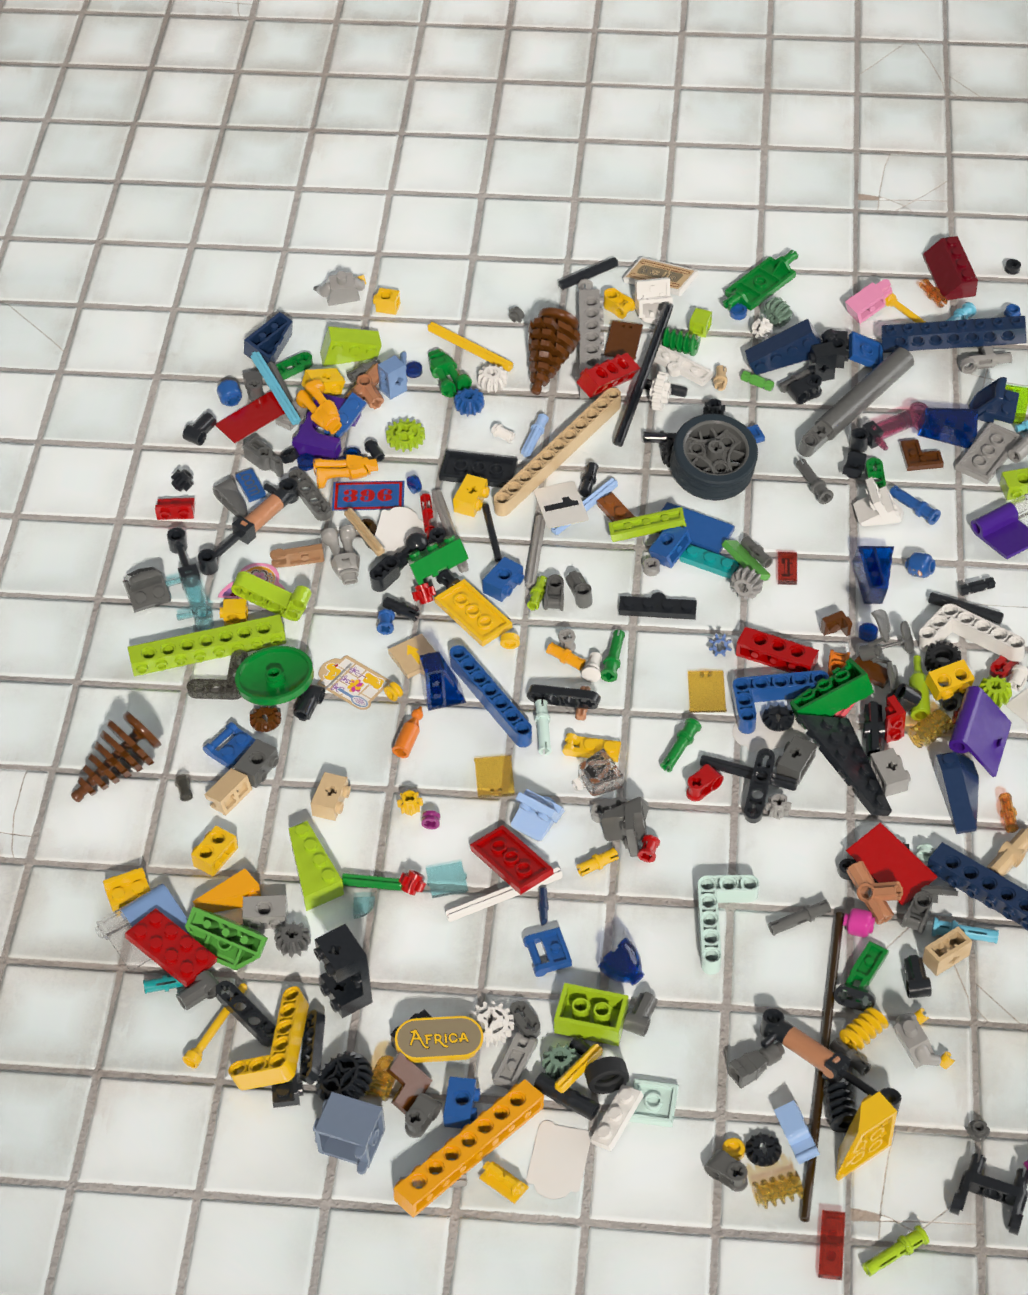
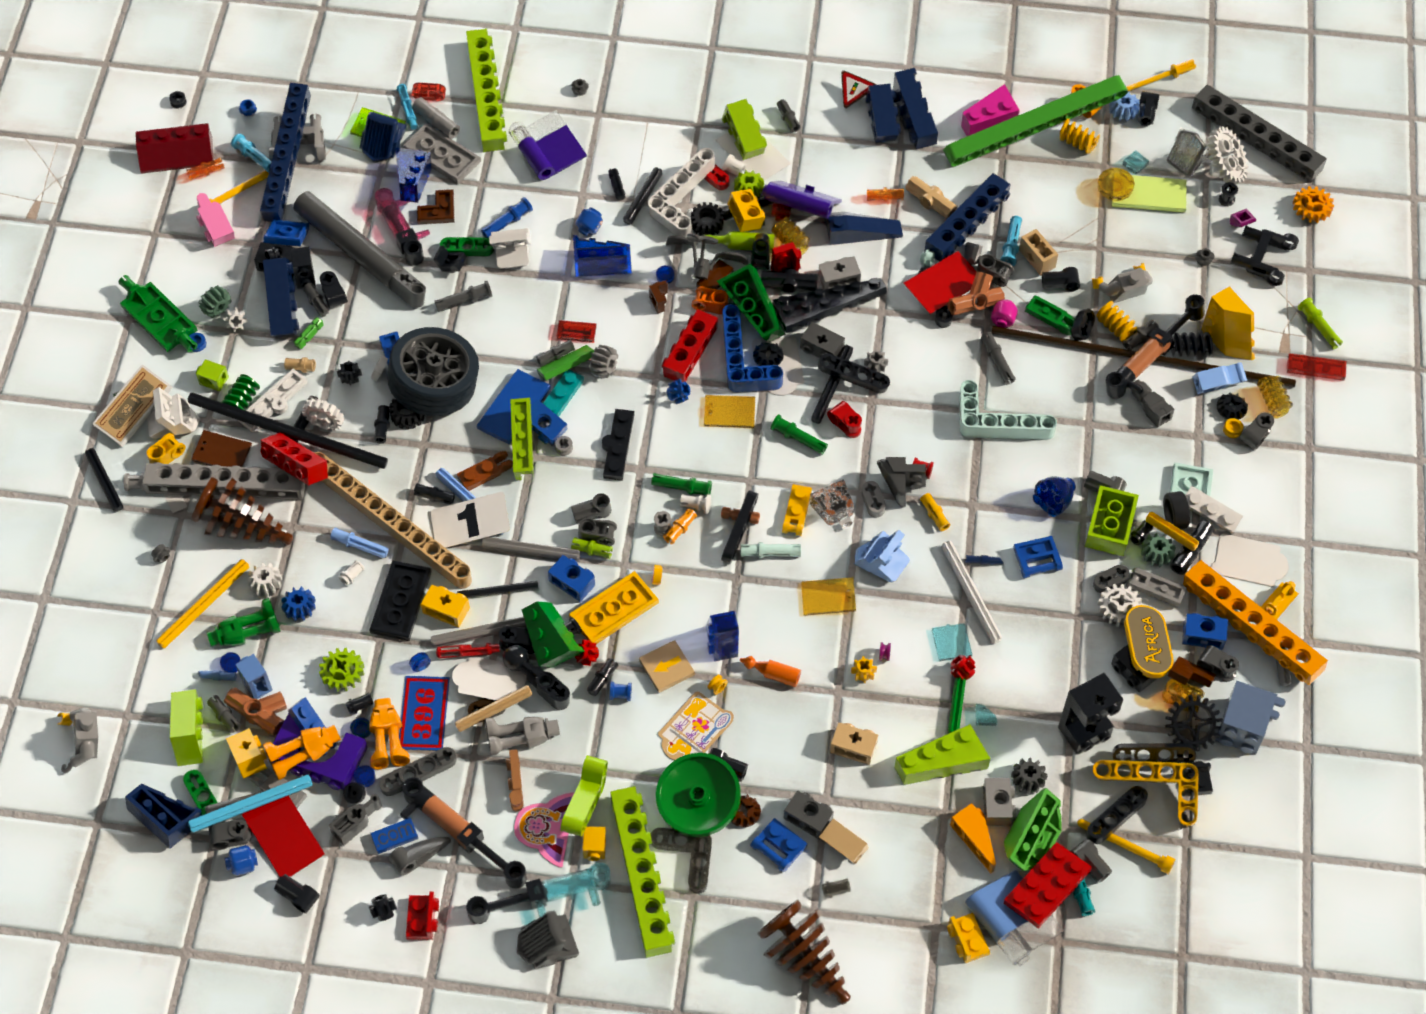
camera: 90 degrees left, 10 degrees up
(217, 847) = (925, 848): yellow brick -> none
(387, 301) = (108, 680): yellow brick -> none
(491, 696) = (725, 602): blue beam -> none
(511, 859) = (937, 580): red plate -> none

